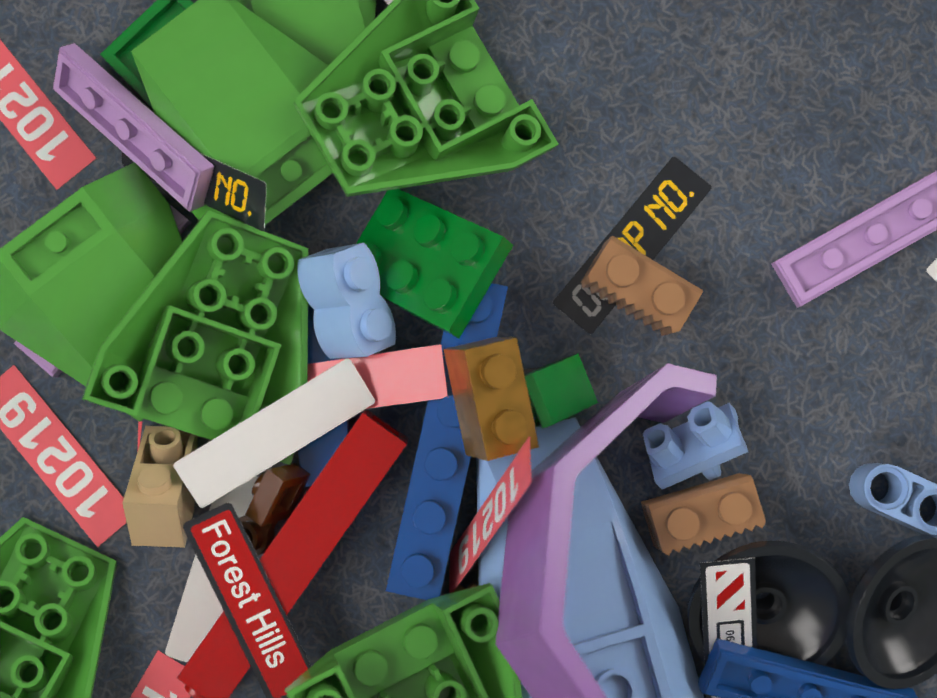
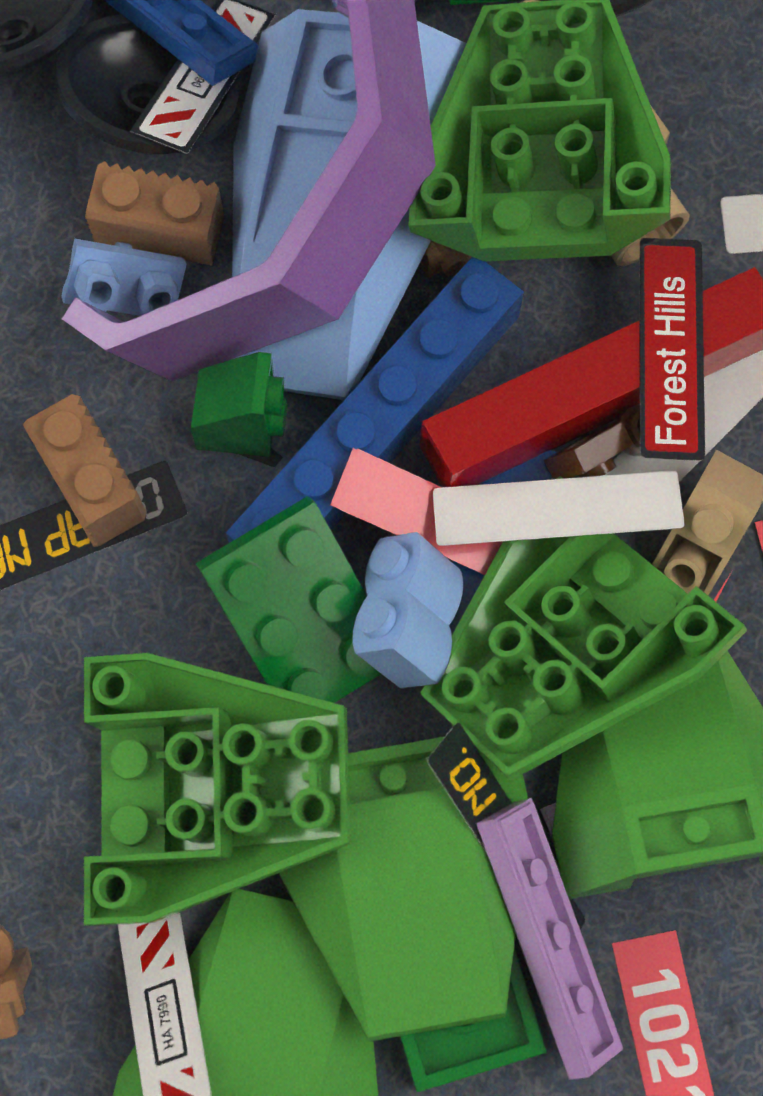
camera: 155 degrees left, 10 degrees down
(490, 516) = (370, 298): coral sticker -> none
(491, 397) = (307, 412): pearl gold brick -> none

